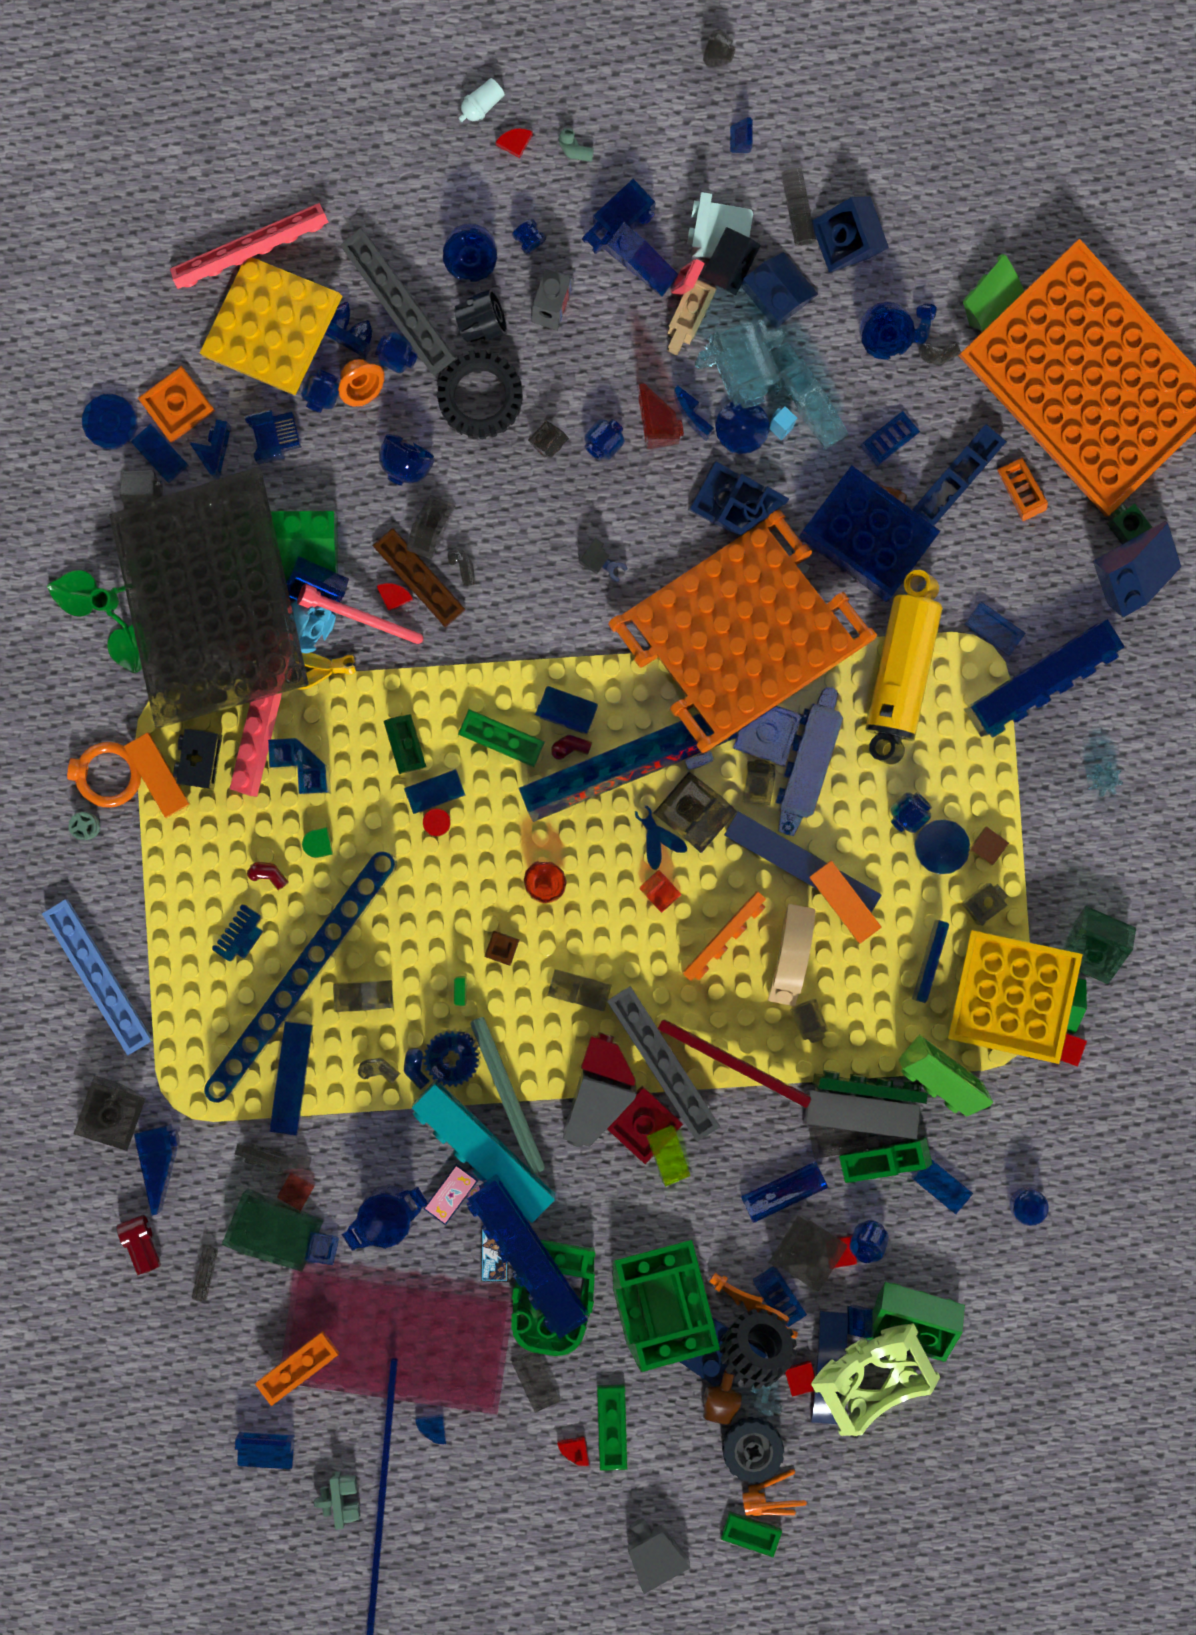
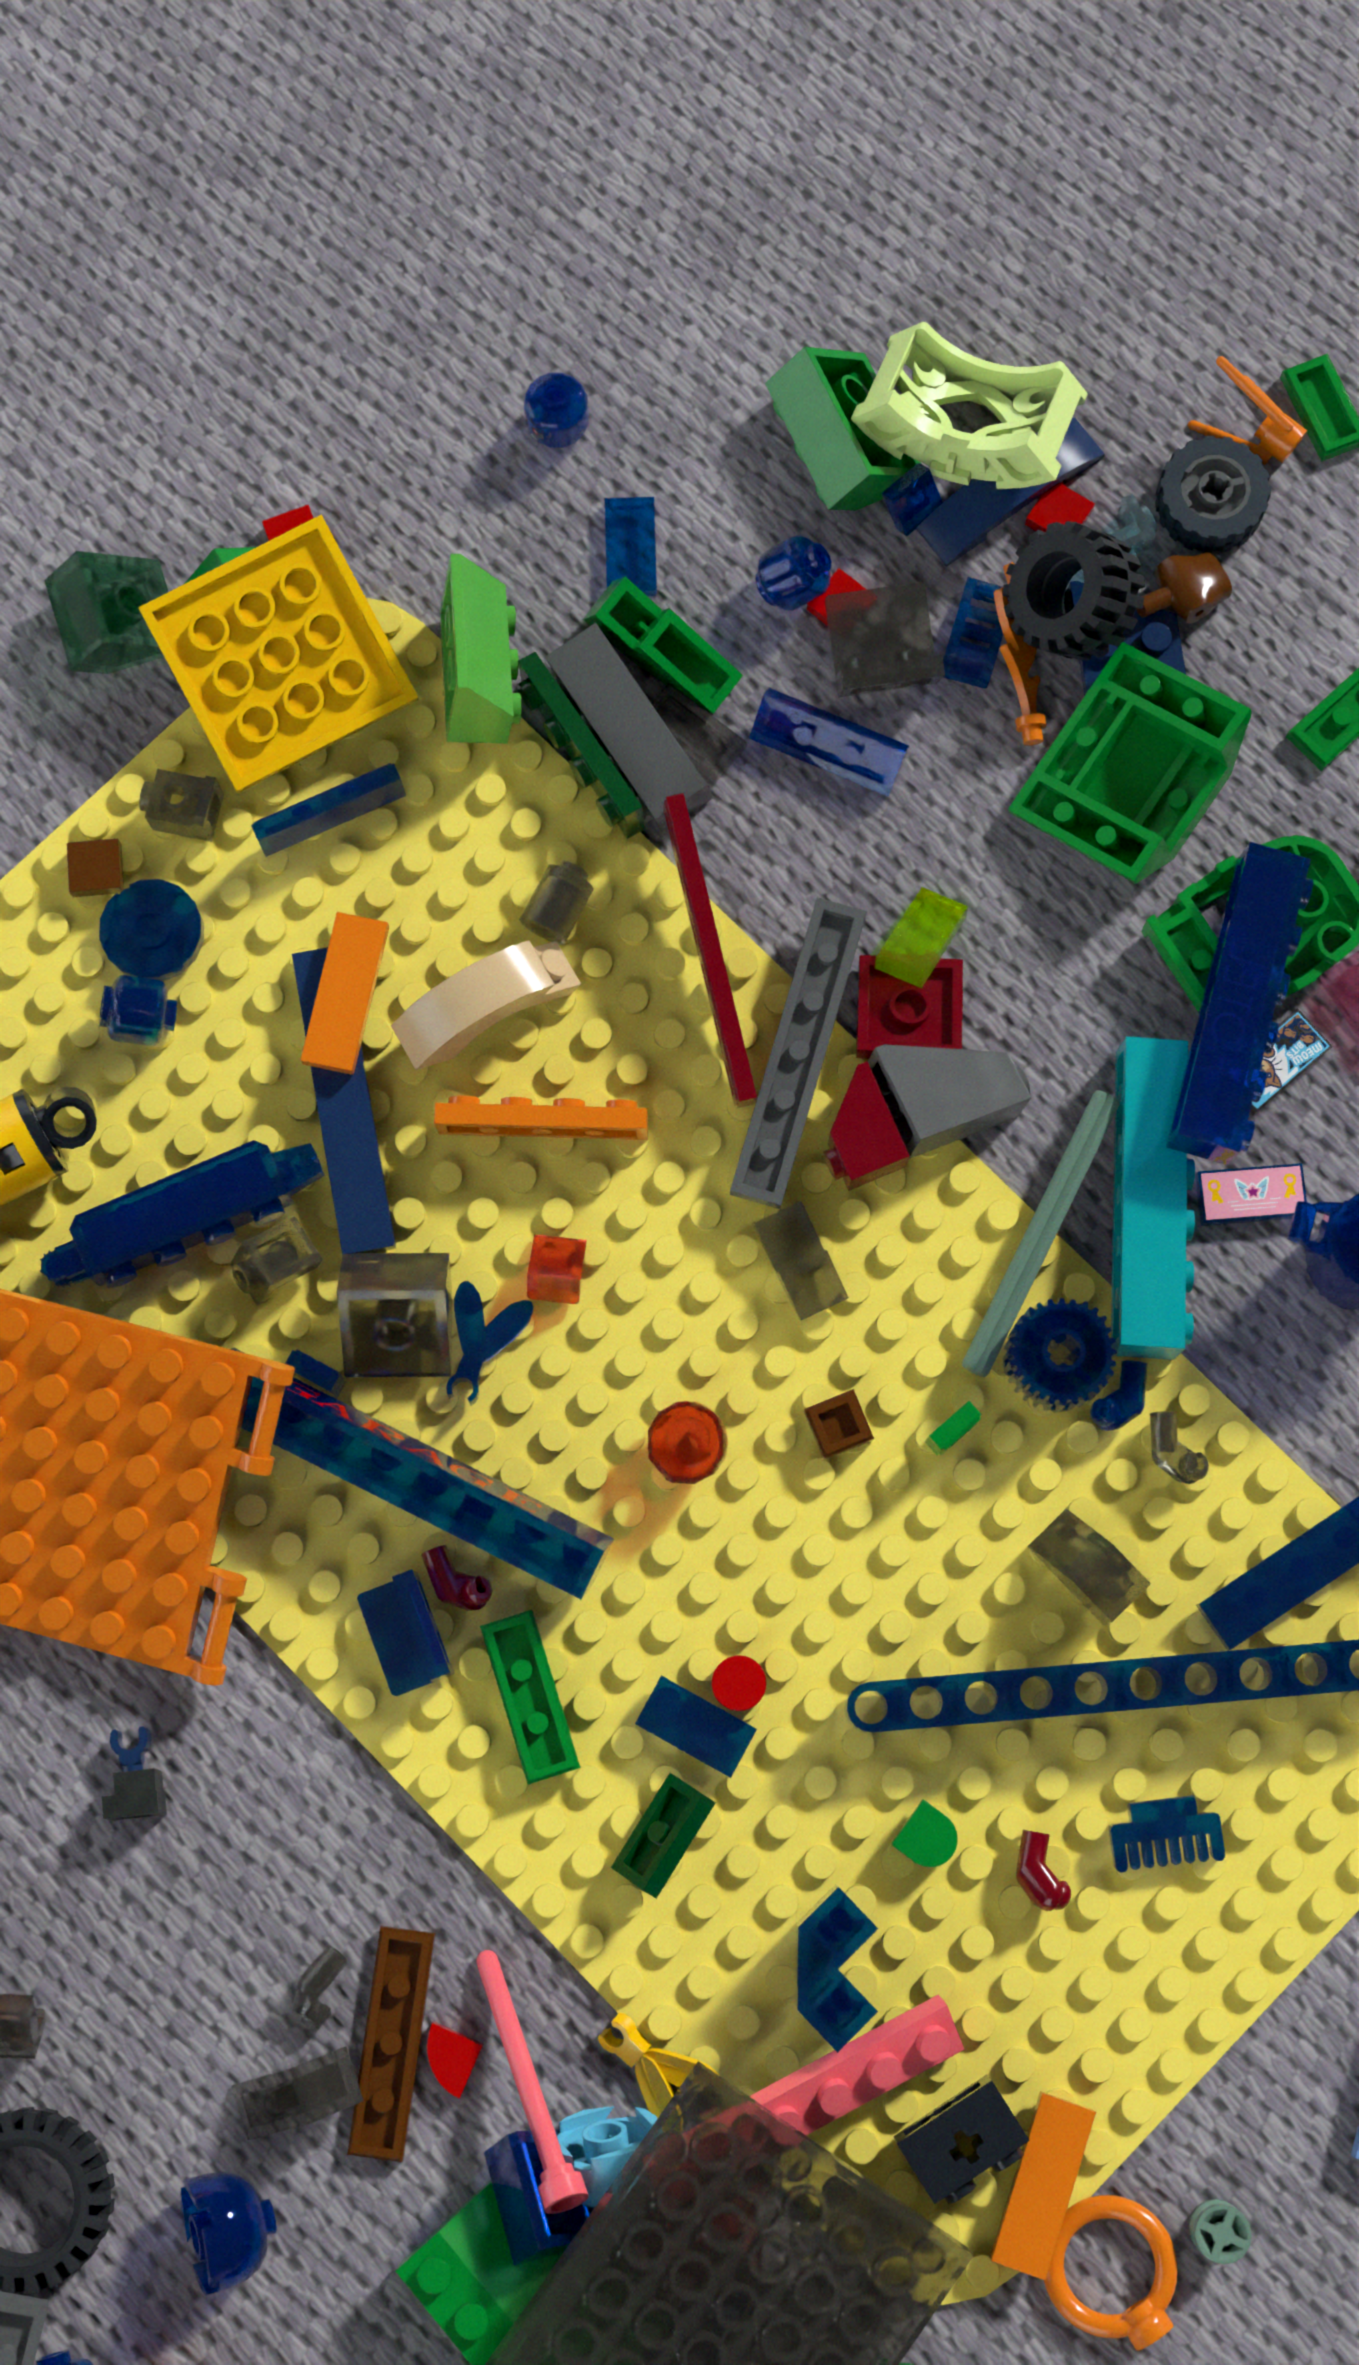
camera: 130 degrees left, 10 degrees down
(770, 735) = (193, 1300): clear blue tile -> none

